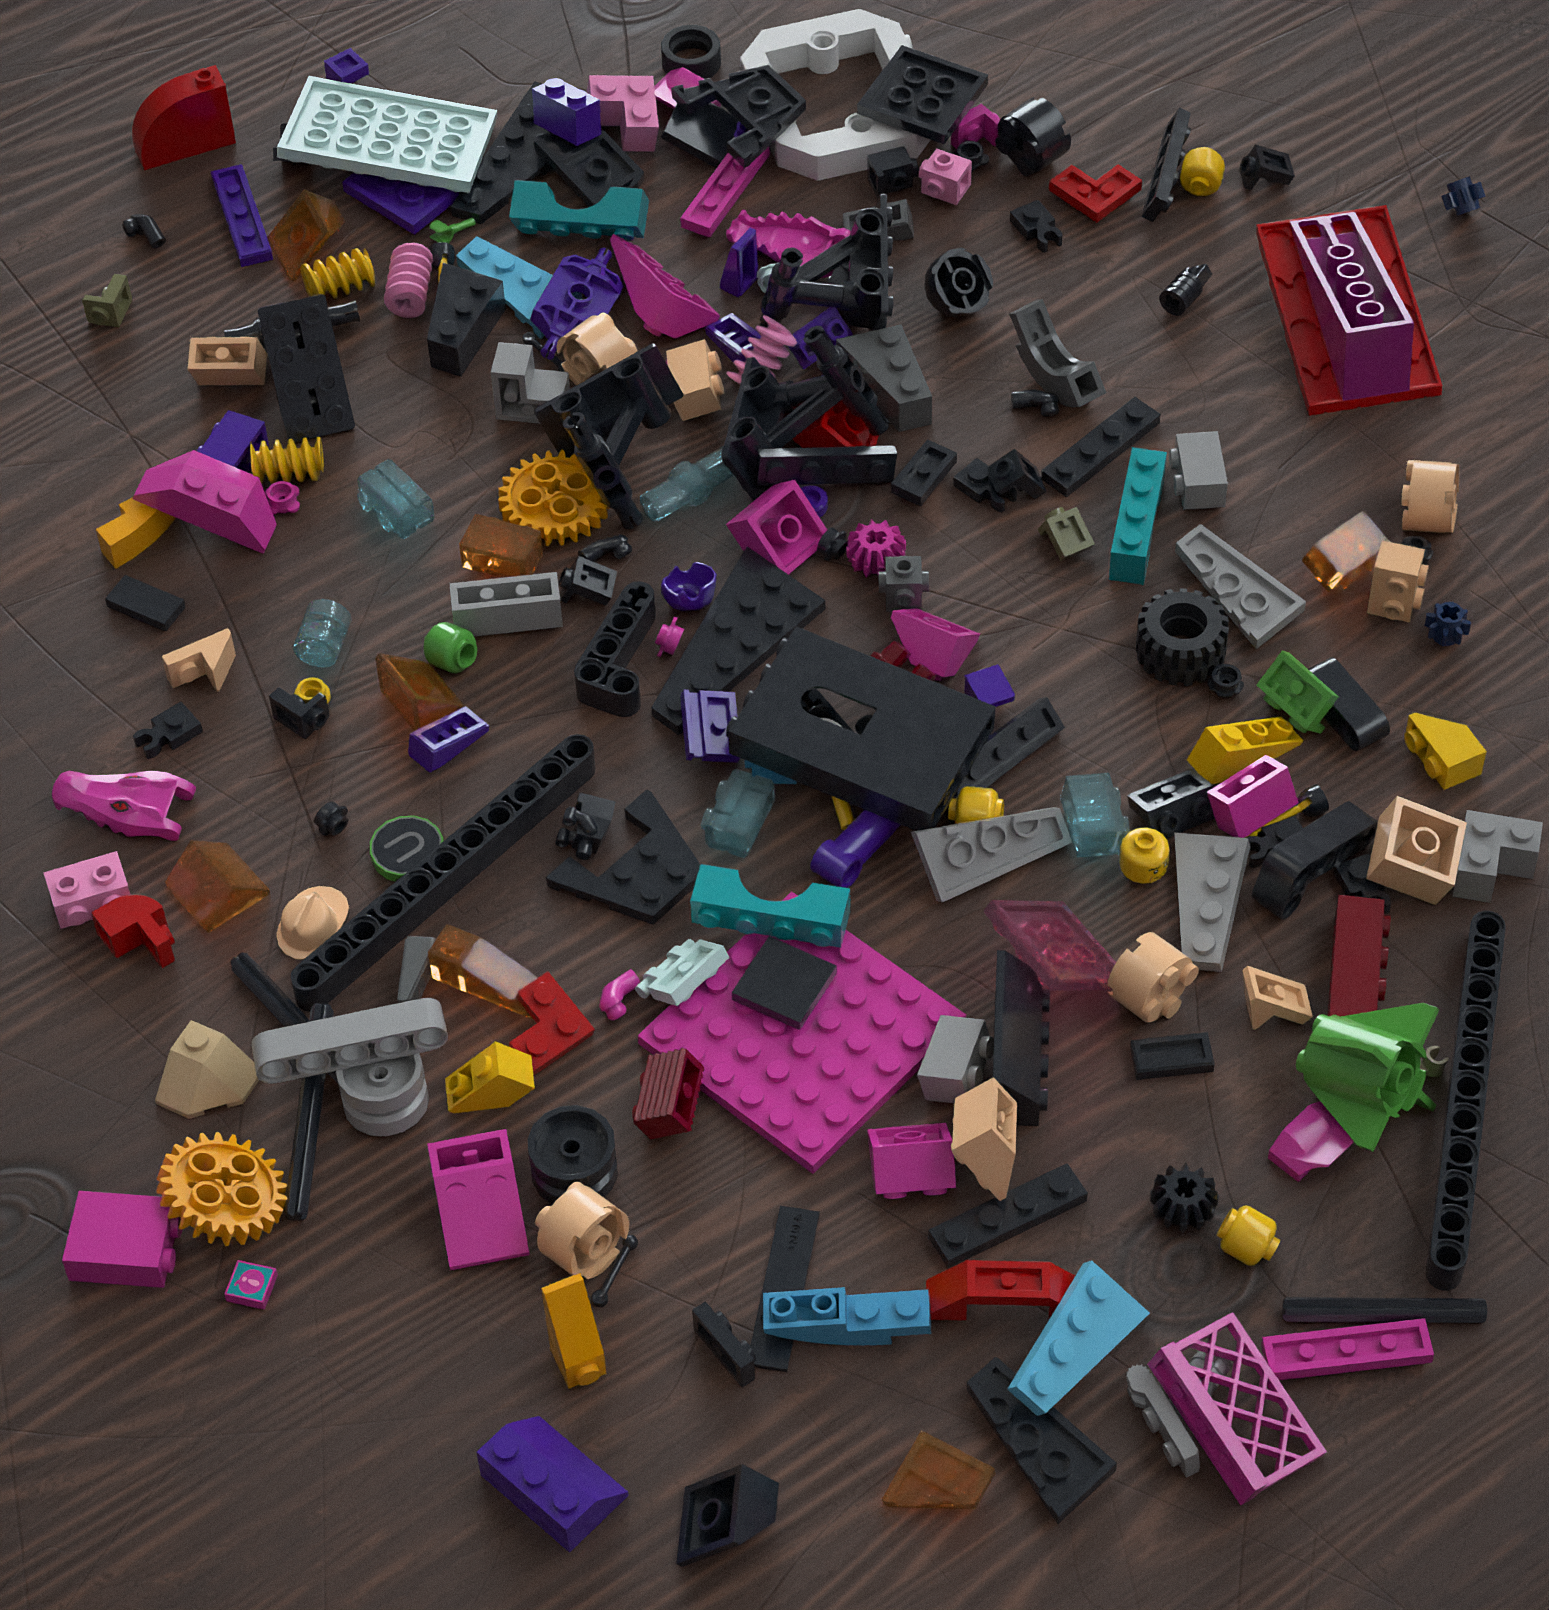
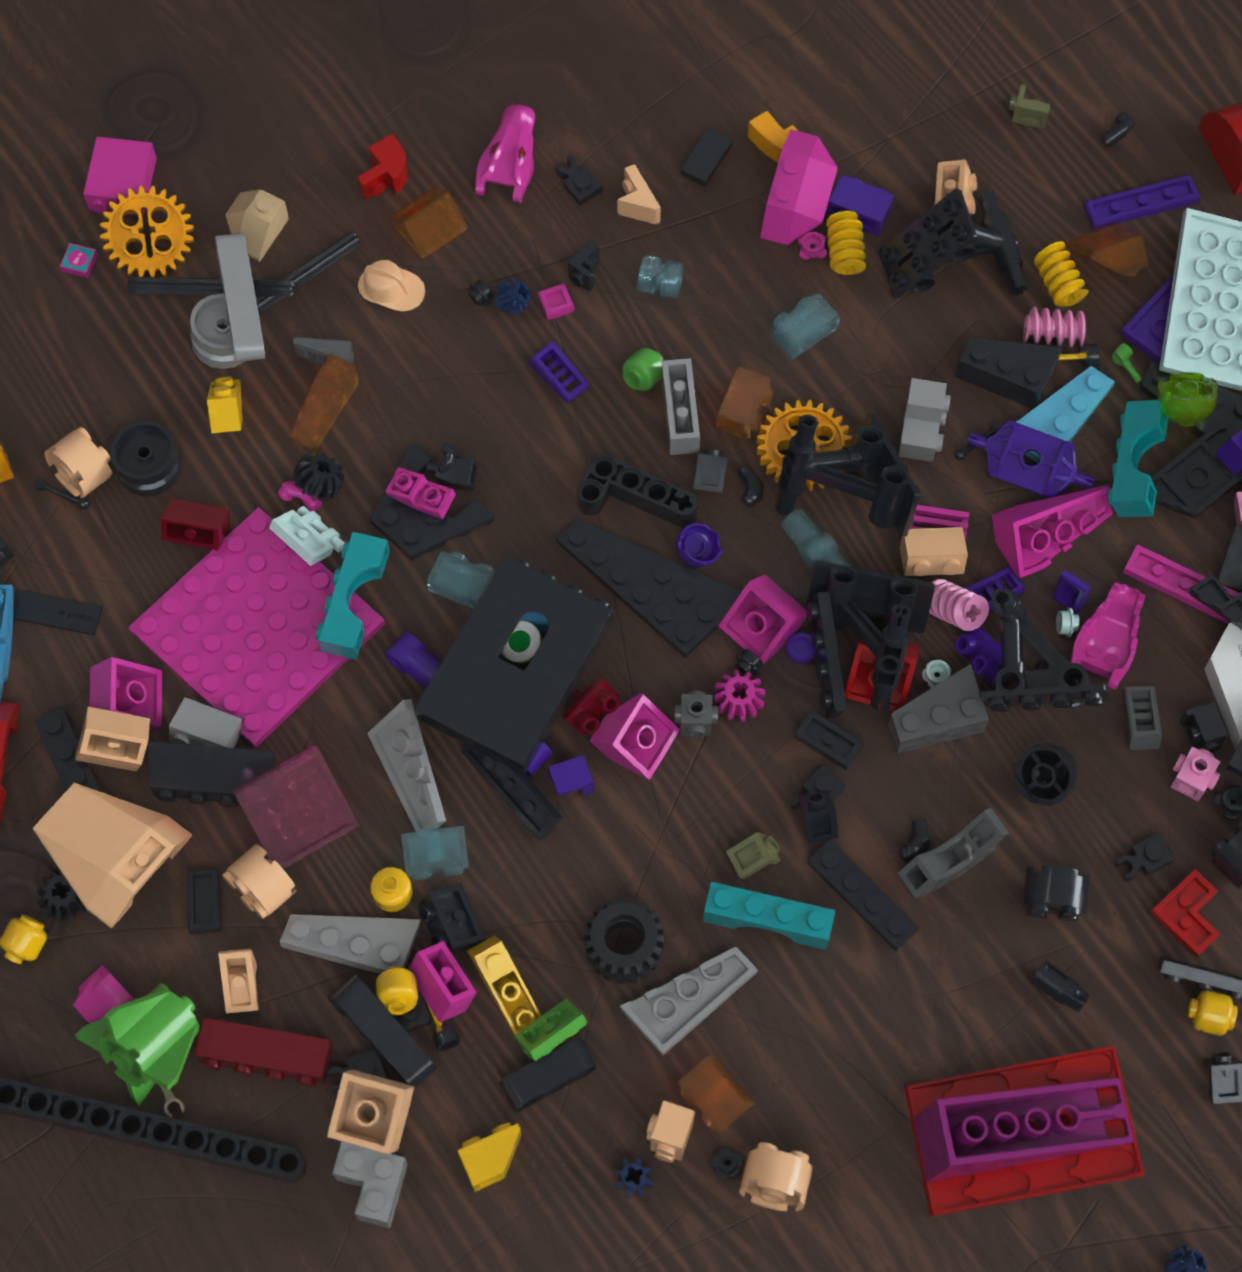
camera: 90 degrees right, 15 degrees up
(85, 887) = (423, 135): bright pink brick -> none
(310, 687) = (608, 269): yellow plate -> none
(342, 780) = (512, 296): none -> dark blue gear
(344, 746) = (556, 301): none -> dark pink tile
(402, 844) = (451, 347): black tile -> none
(415, 690) = (599, 346): clear orange slope -> none
(461, 855) = (428, 383): black beam -> none
(478, 1199) = (121, 396): dark pink slope -> none
(510, 159) = (1187, 397): none -> clear neon green cylinder
(558, 1021) = (276, 452): red plate -> none
(593, 348) = (957, 471): light nougat brick -> none
(599, 964) = (318, 476): none -> black gear
(625, 853) = (419, 493): none -> dark pink slope
(669, 637) = (648, 532): dark pink plate -> none
(705, 724) = (554, 555): plate -> none
(784, 982) = (286, 606): black tile -> none
(975, 804) = (448, 760): yellow head -> none
(1090, 279) = (1057, 892): none -> black brick
(1128, 1137) = (107, 847): none -> light nougat wedge
(1199, 470) = (819, 973): light grey brick -> none
(1226, 674) = (585, 970): black plate -> none
(1269, 828) = (397, 990): none -> yellow head

